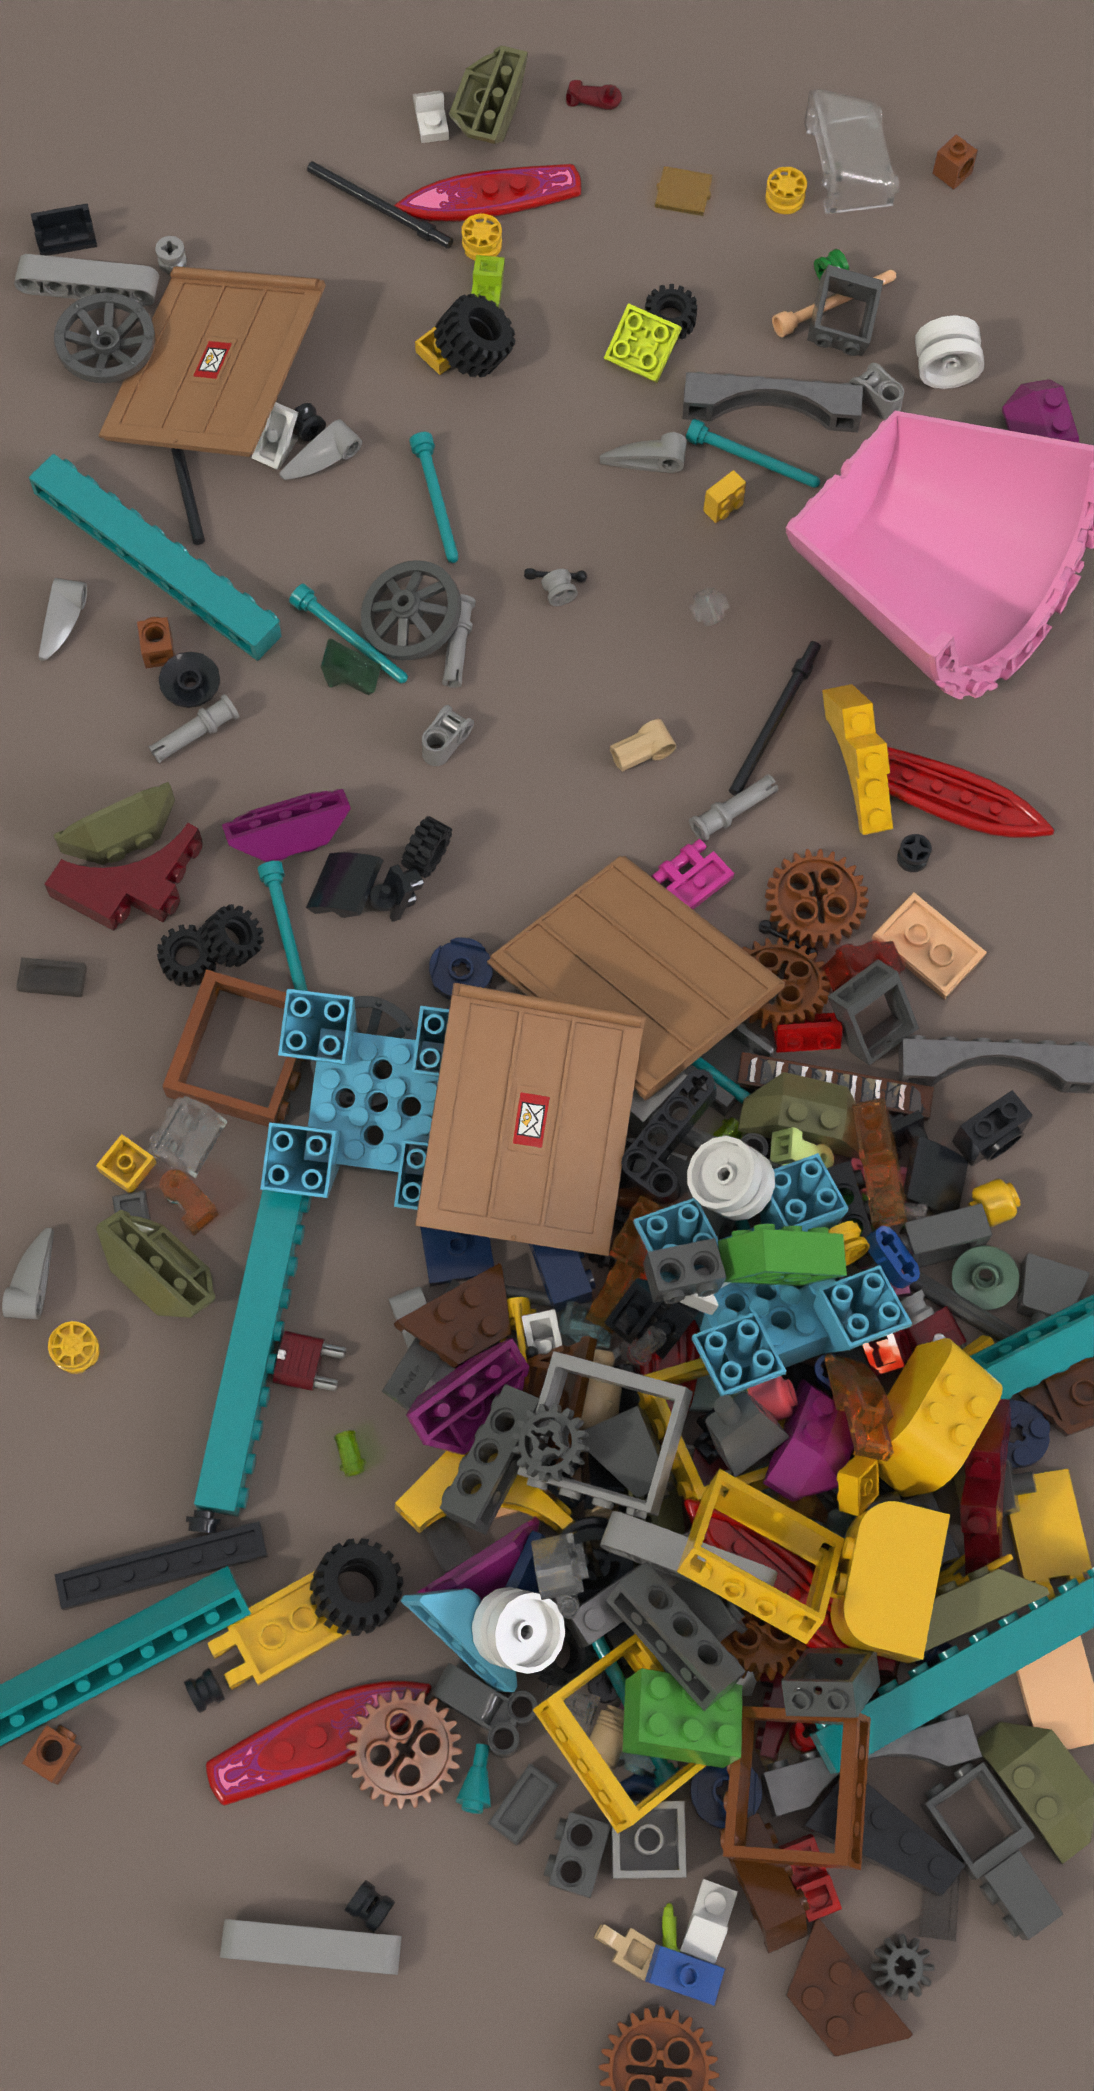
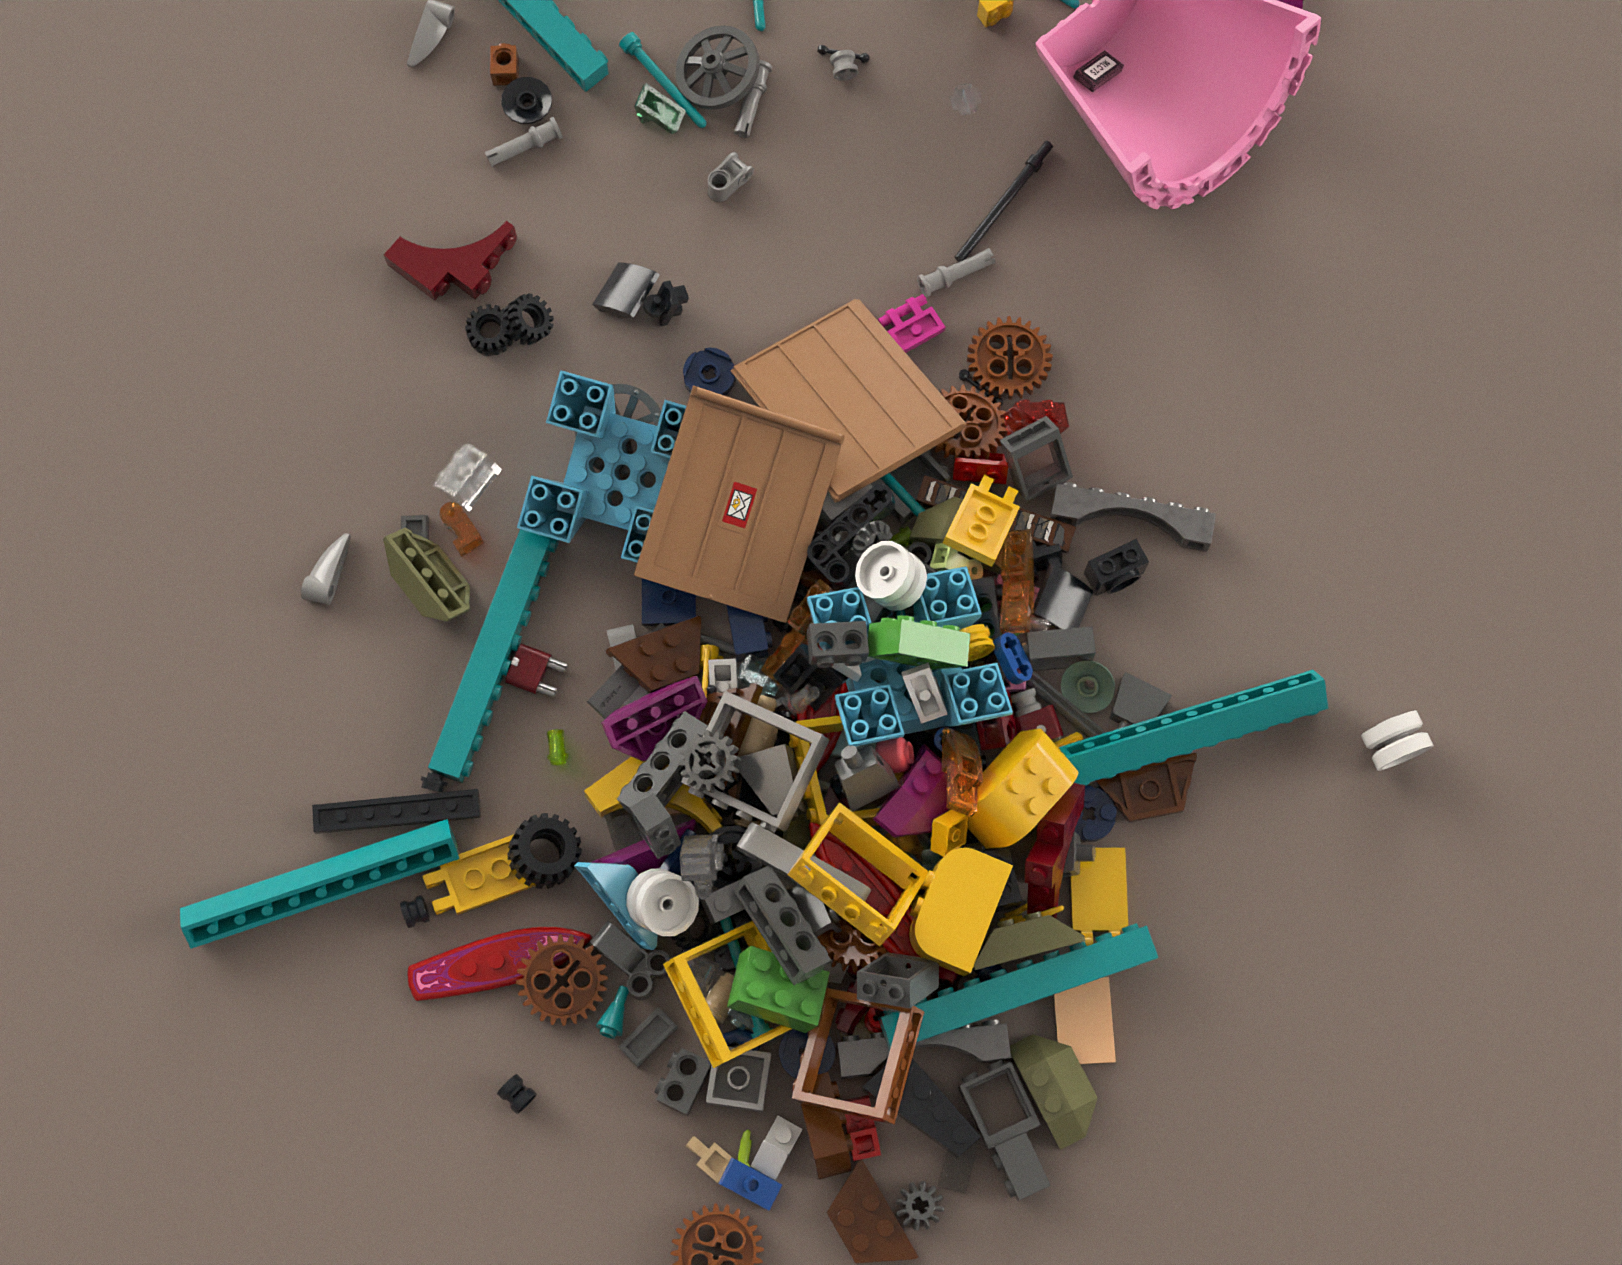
camera: 10 degrees right, 5 degrees up
(37, 1758) = (279, 940): dark orange brick -> none
(51, 977) = (378, 331): clear smoke plate -> none
(73, 1347) = (353, 631): yellow wheel -> none
(119, 827) = (451, 216): olive wedge -> none
(126, 1164) = (415, 491): yellow piece -> none
(190, 1040) = (481, 401): dark orange window -> none
(272, 875) = (568, 273): teal piece -> none
(288, 825) = (587, 234): magenta wedge -> none
(310, 1946) = (466, 1116): light grey beam -> none
(427, 846) = (697, 268): black tyre -> none
(495, 1534) = (655, 826): none -> dark grey brick
(650, 742) = (896, 207): tan piece -> none
(690, 1136) = (867, 535): none -> dark grey gear
(799, 1316) = (924, 693): none -> white slope
(825, 1097) = (982, 522): none -> yellow tile
(859, 553) = (1098, 71): none -> tile
(864, 755) = (1068, 244): yellow arch -> none
(916, 845) = (1098, 325): black wheel -> none
(930, 945) = (1096, 410): light nougat tile -> none
(962, 797) = (1136, 285): red piece -> none
(998, 1201) = (1108, 627): yellow head -> none

